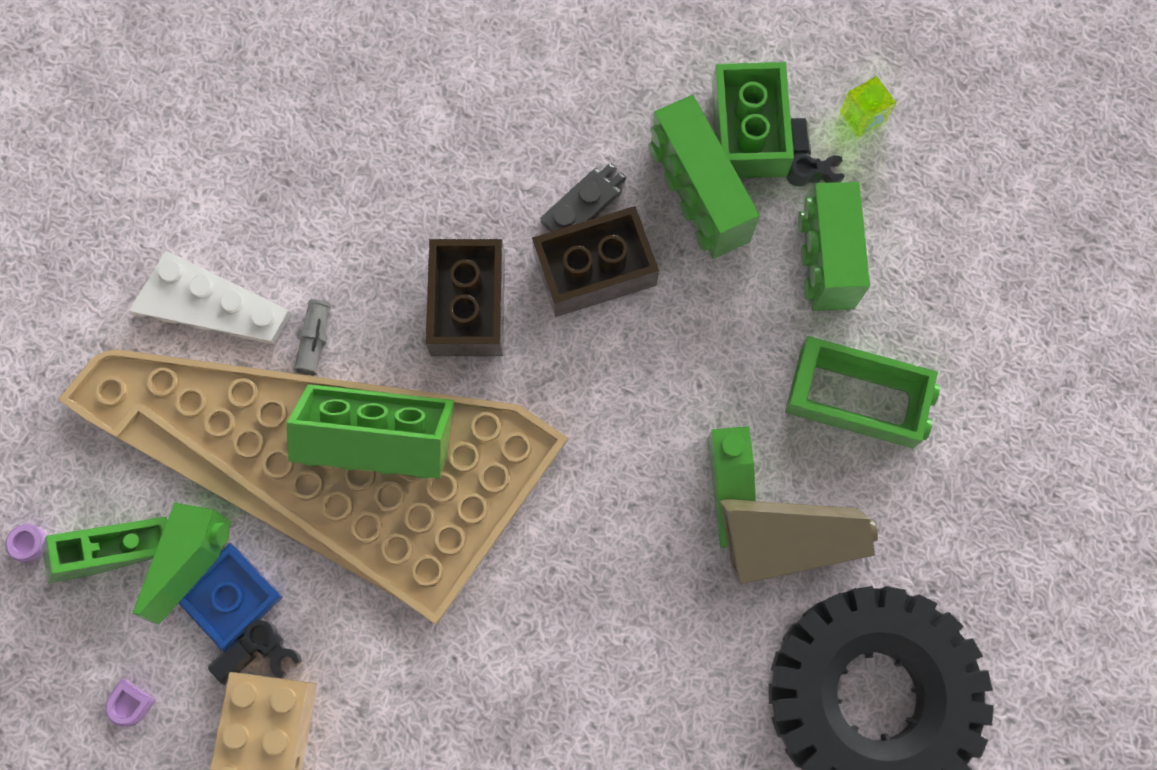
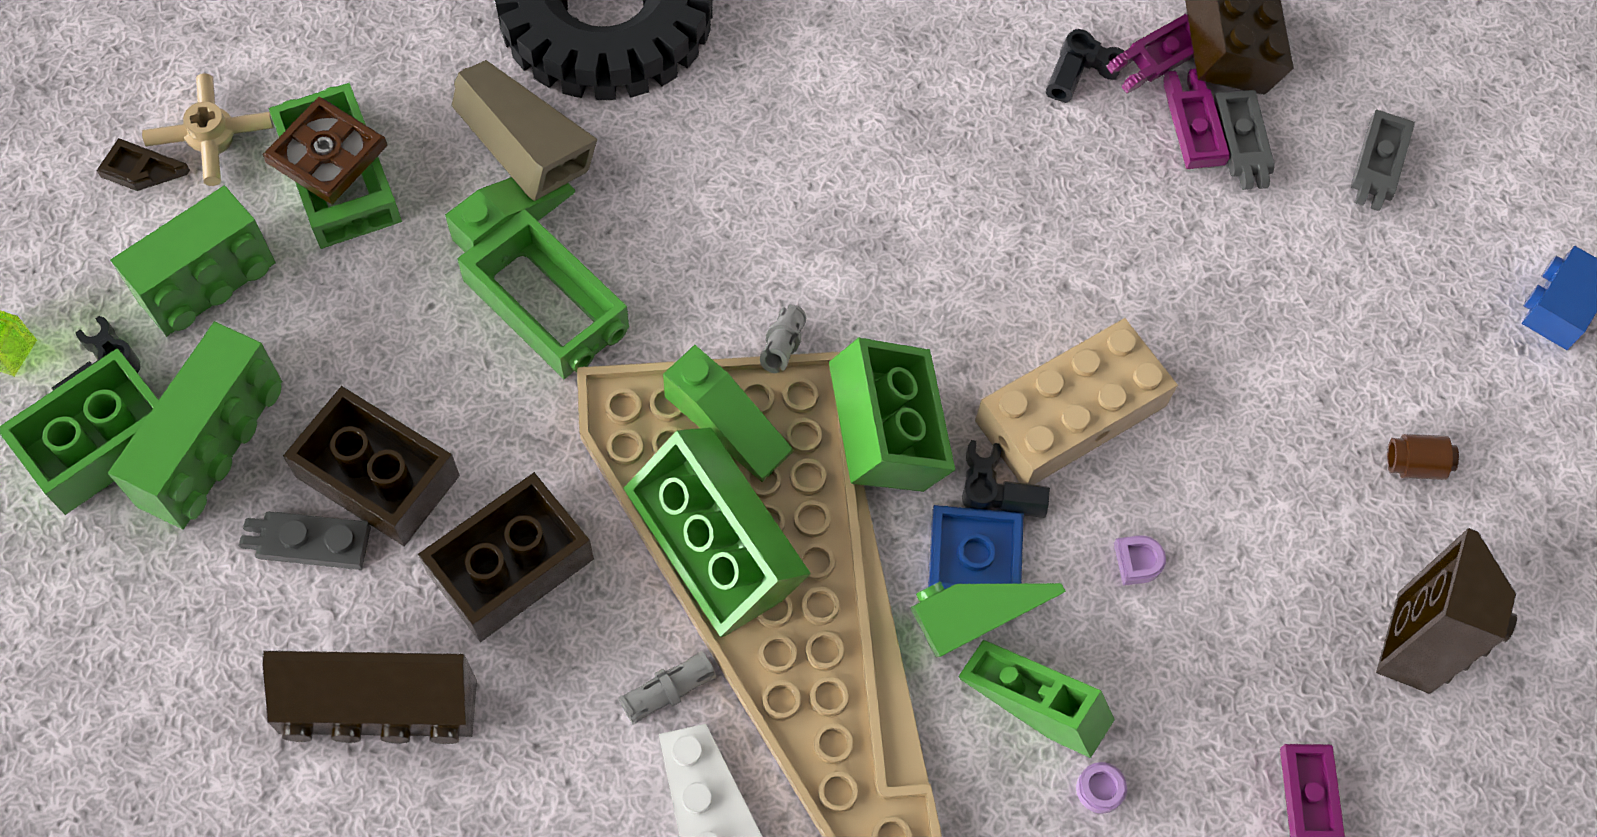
camera: 135 degrees left, 10 degrees down
(351, 610) = (891, 415): none -> bright green brick
(444, 167) = (369, 695): none -> dark brown slope
(445, 500) = (717, 402): none -> bright green slope
(474, 589) = (783, 339): none -> light grey pin
(642, 430) = (528, 238): none -> bright green piece
(864, 380) = (325, 150): none -> reddish brown piece
(959, 270) = (139, 167): none -> dark brown tile
(967, 323) = (207, 129): none -> tan bar

